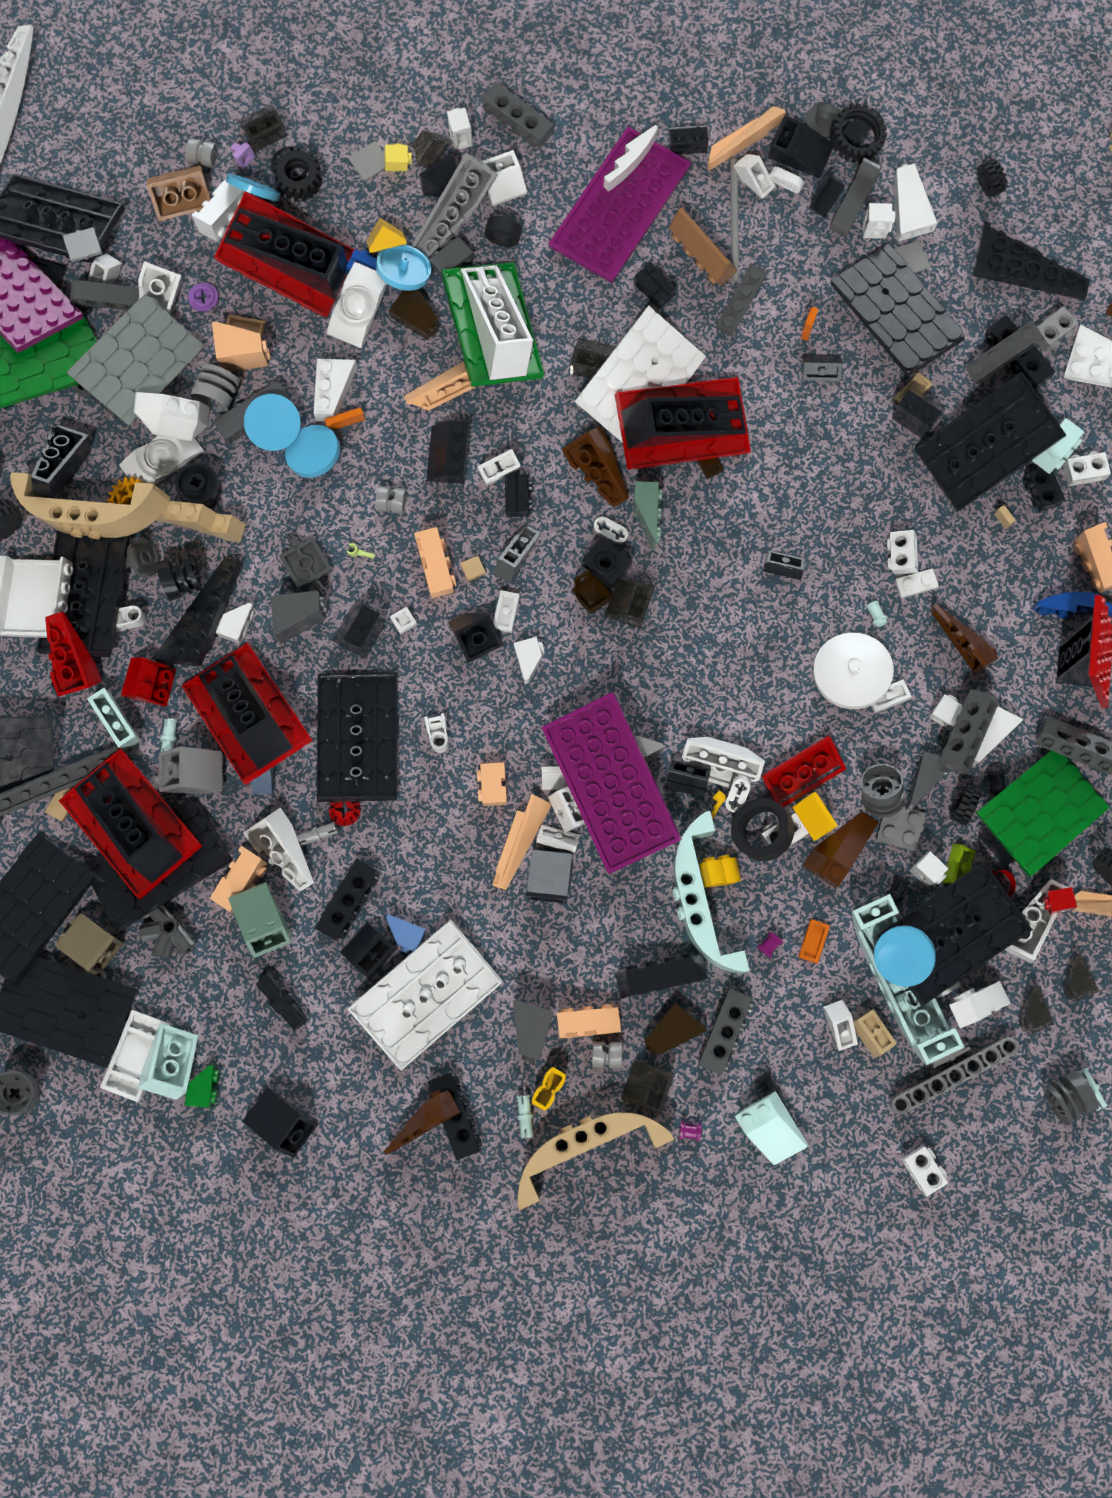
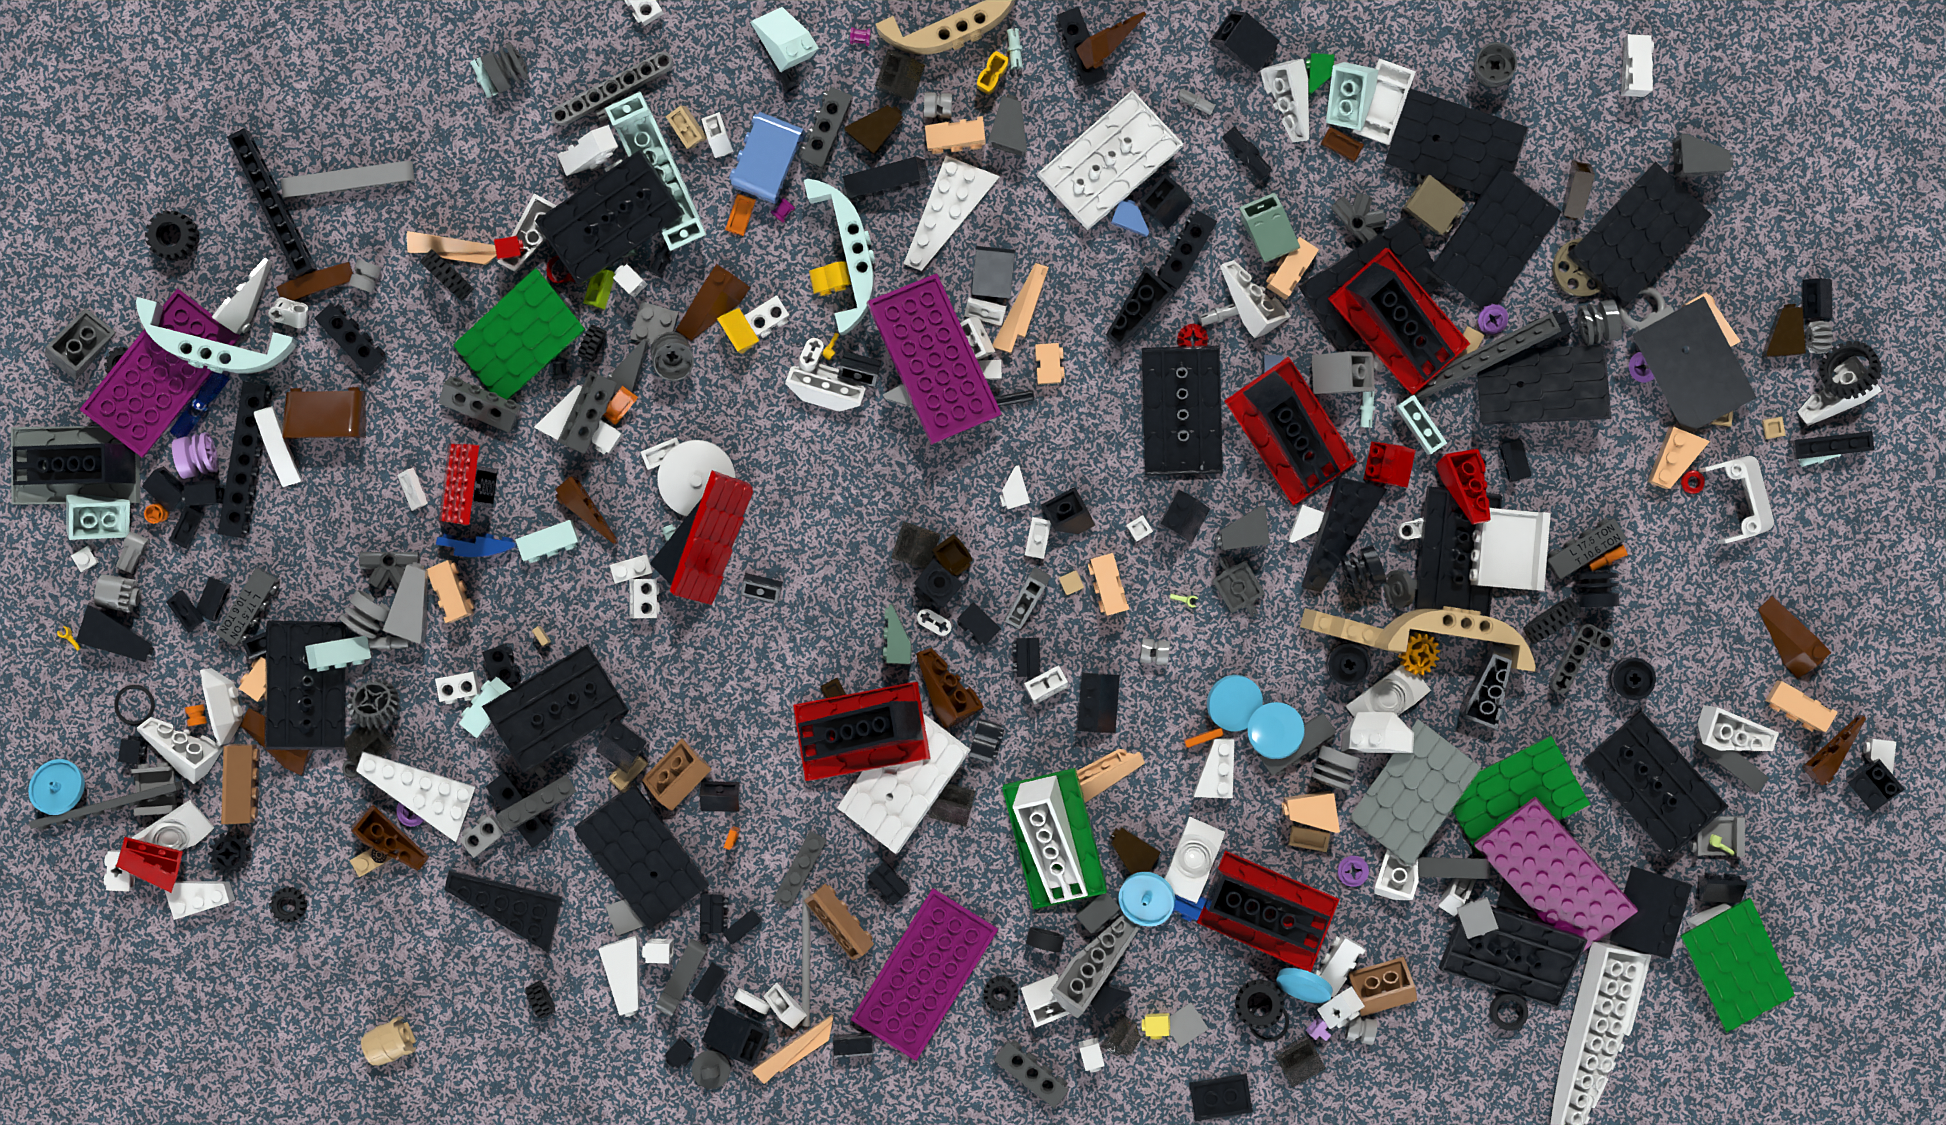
camera: 175 degrees right, 10 degrees up
(22, 685) = (1515, 460): none -> black panel
(26, 827) = (1501, 319): none -> medium lavender gear
(57, 157) = (1494, 1011): none -> black tyre
(182, 1012) = (1342, 144): none -> reddish brown tile
(217, 165) = (1341, 1008): none -> white brick
(233, 1070) = (1290, 88): none -> white wedge
(333, 1058) = (1196, 101): none -> light grey axle
(337, 97) = (1220, 1097): none -> black tile
(384, 237) = (1166, 932): yellow slope -> none
(396, 841) = (1139, 308): none -> black wedge
(437, 729) = (1104, 417): white piece -> none
(529, 750) = (1015, 398): none -> black axle
(546, 176) = (998, 1005): none -> black tyre
(559, 418) = (985, 740): none -> black brick
(566, 526) = (978, 623): none -> black brick
(592, 955) = (951, 201): none -> white wing
(634, 154) = (908, 1026): white slope -> none
(746, 813) = (766, 311): black tyre -> none
(788, 999) = (766, 157): none -> medium blue windscreen
(796, 244) = (742, 926): none -> black slope
(802, 770) = (748, 379): red slope -> none
(825, 258) = (713, 912): none -> black brick
(847, 149) = (657, 1064): black tyre -> none
(850, 593) = (704, 541): none -> red piece
(865, 385) = (676, 774): none -> medium nougat slope
(904, 956) = (657, 192): medium azure piece -> none
(934, 743) = (619, 405): none -> orange tile
(1002, 609) = (548, 541): none -> light aqua brick
(1034, 1012) = (534, 147): clear smoke slope -> none
(1078, 980) = (491, 177): clear smoke slope -> none

